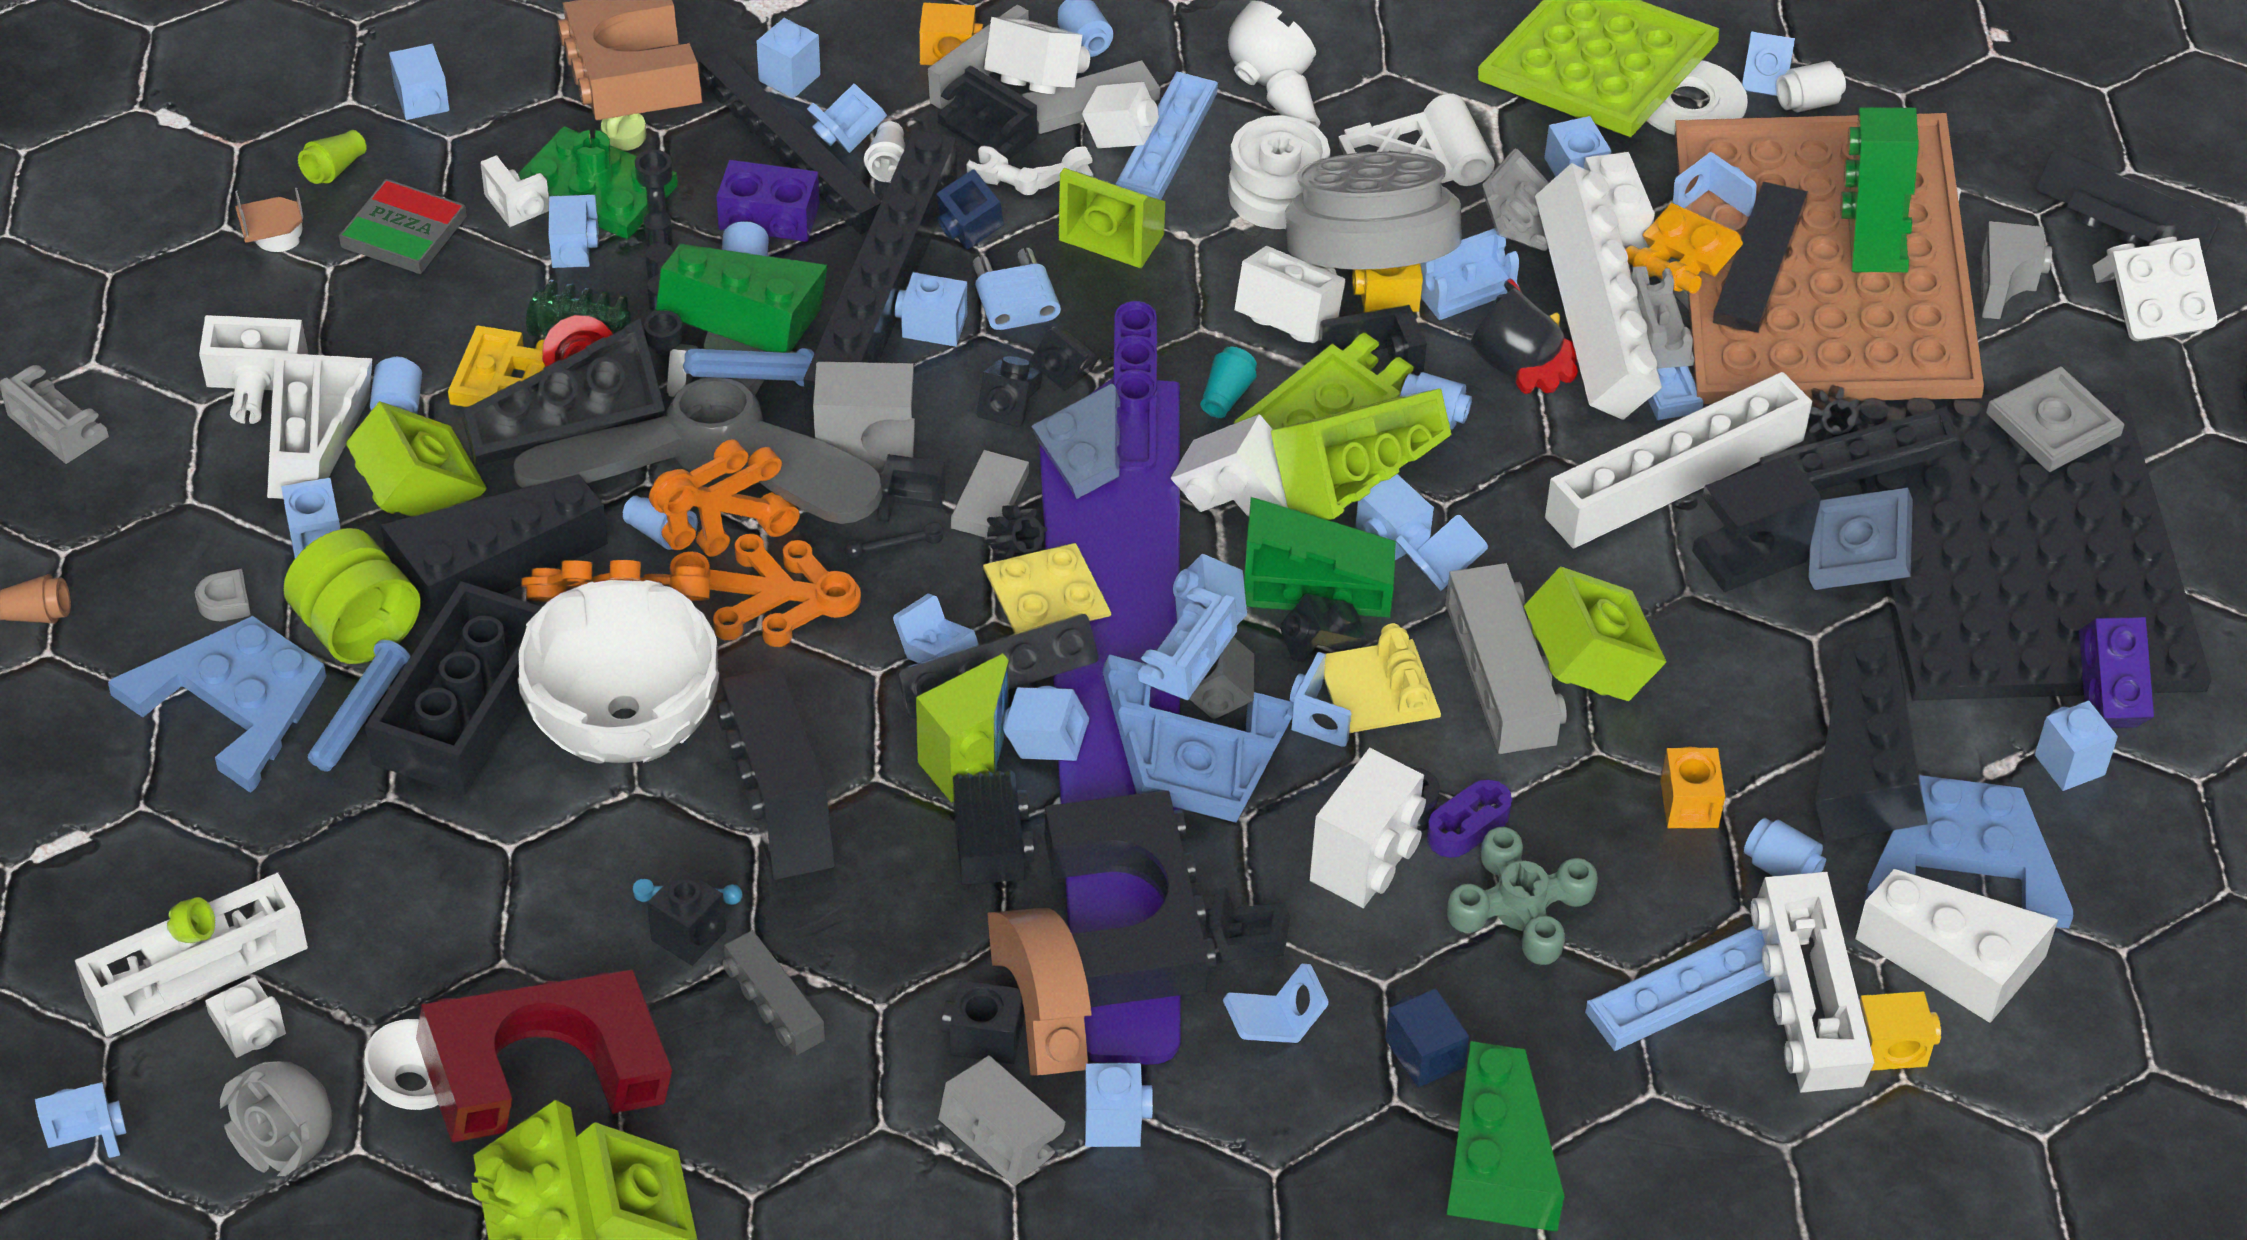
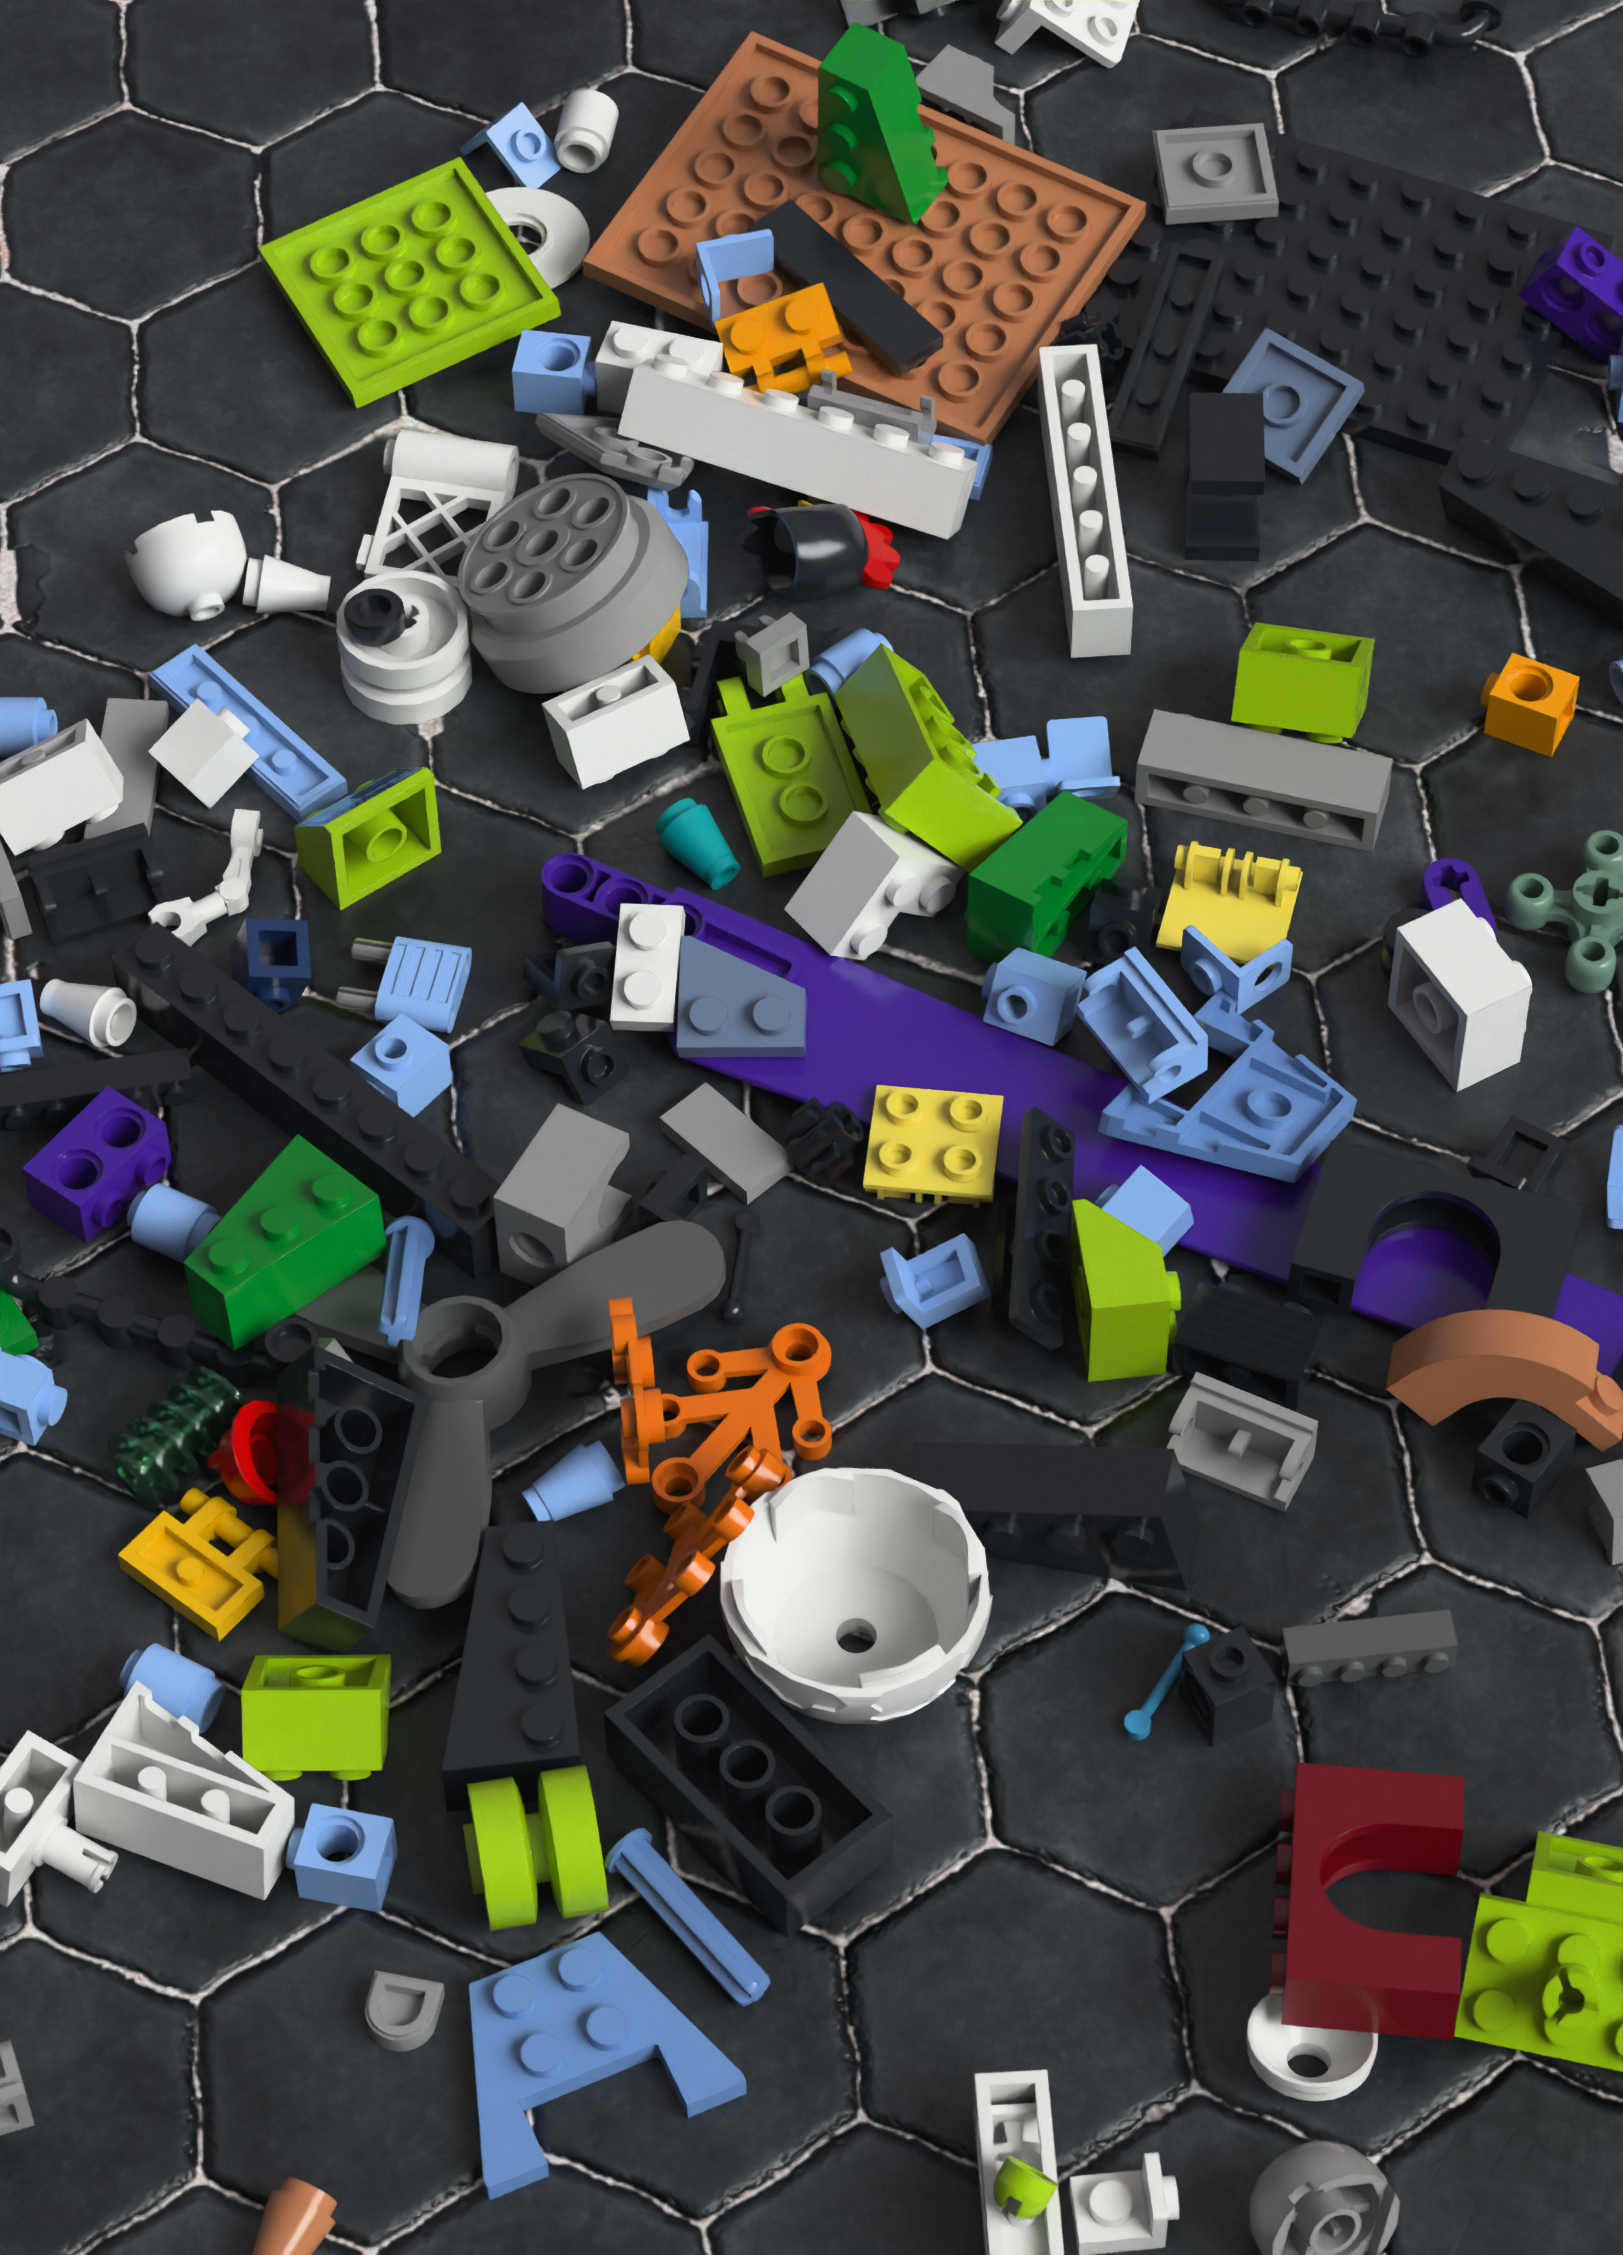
camera: 60 degrees left, 5 degrees up
(903, 856) = (1242, 1441): none -> light grey hinge
(1085, 378) = (647, 967): none -> white plate
(1264, 130) = (375, 617): none -> black tile
(1395, 341) = (774, 653): none -> light grey tile

